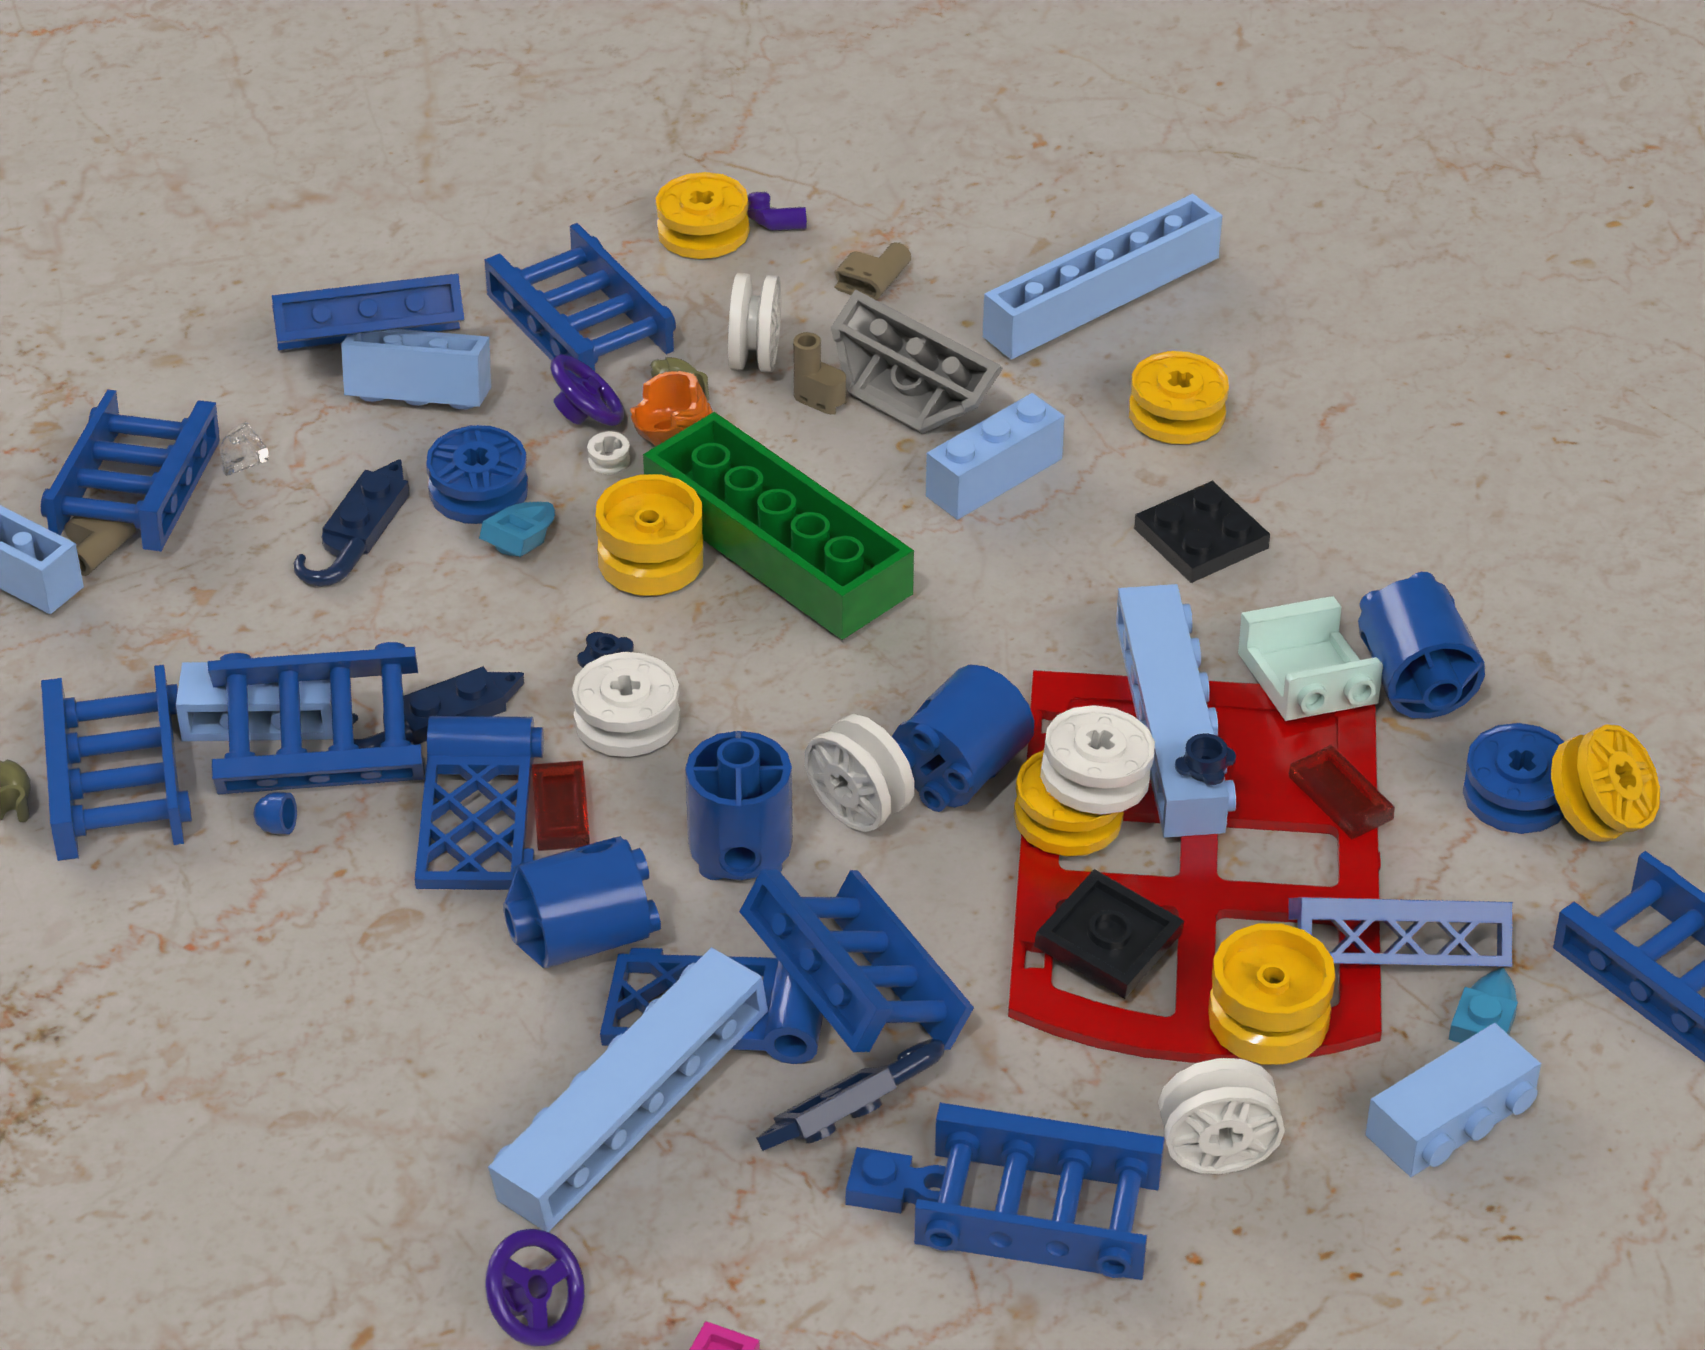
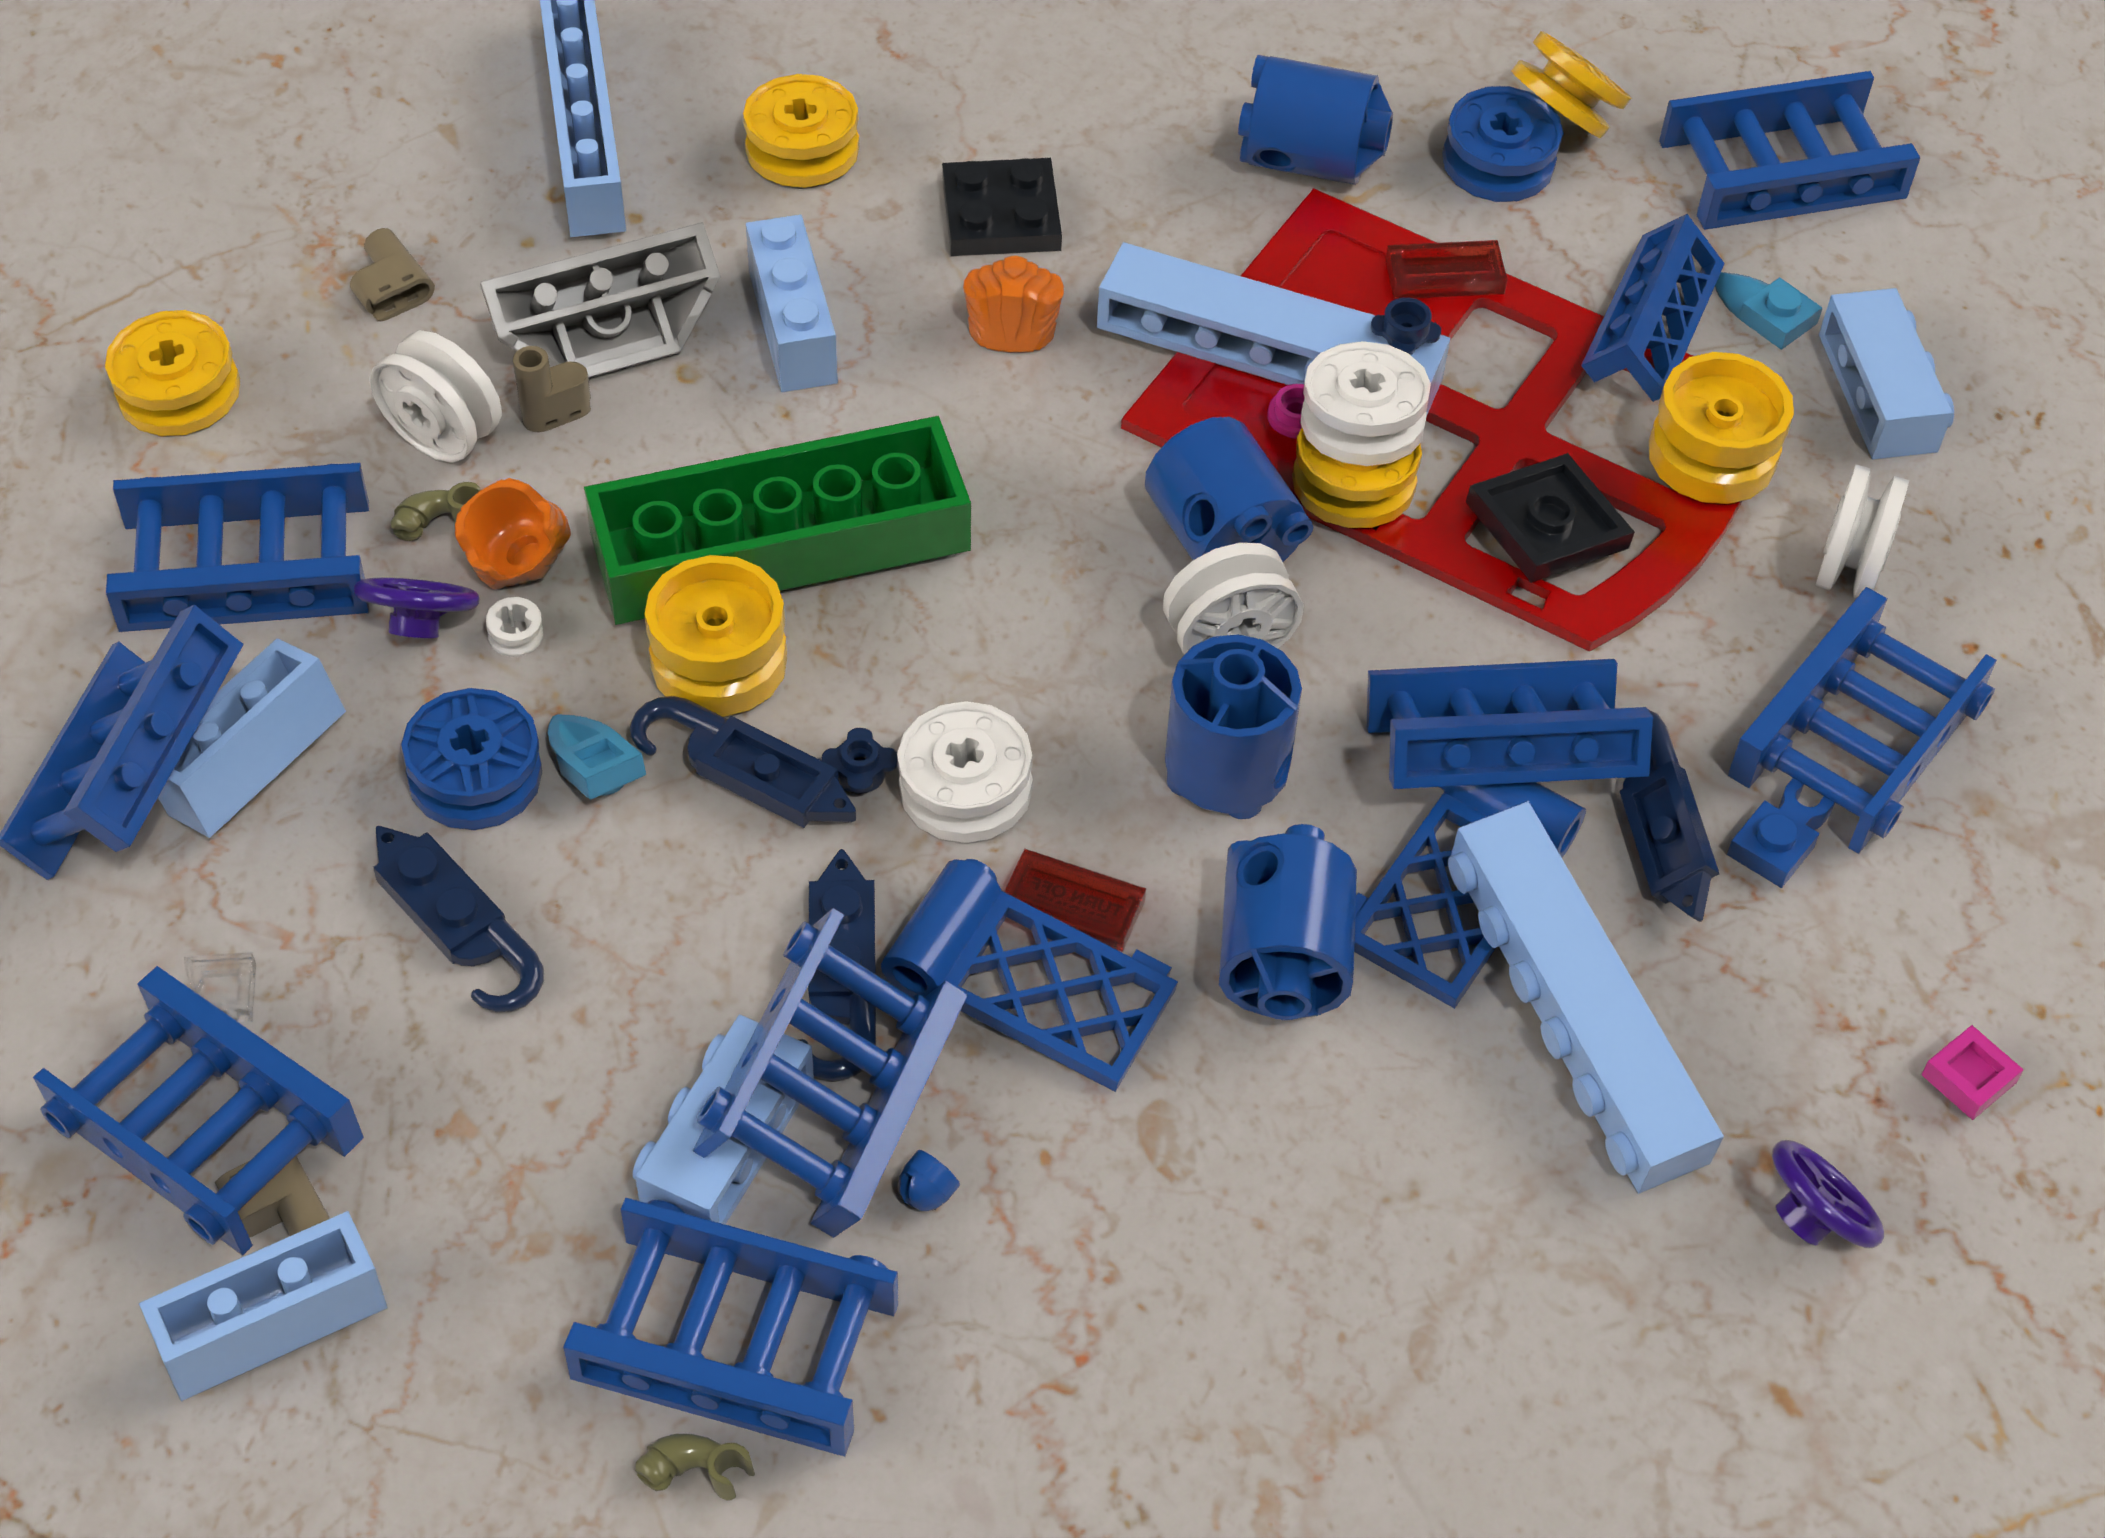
camera: 65 degrees left, 10 degrees up
(564, 600) = (750, 762): none -> dark blue plate
(775, 218) = (230, 309): dark purple arm -> none
(1093, 568) = (1012, 305): none -> orange hair
(1306, 660) = (1263, 213): light aqua panel -> none

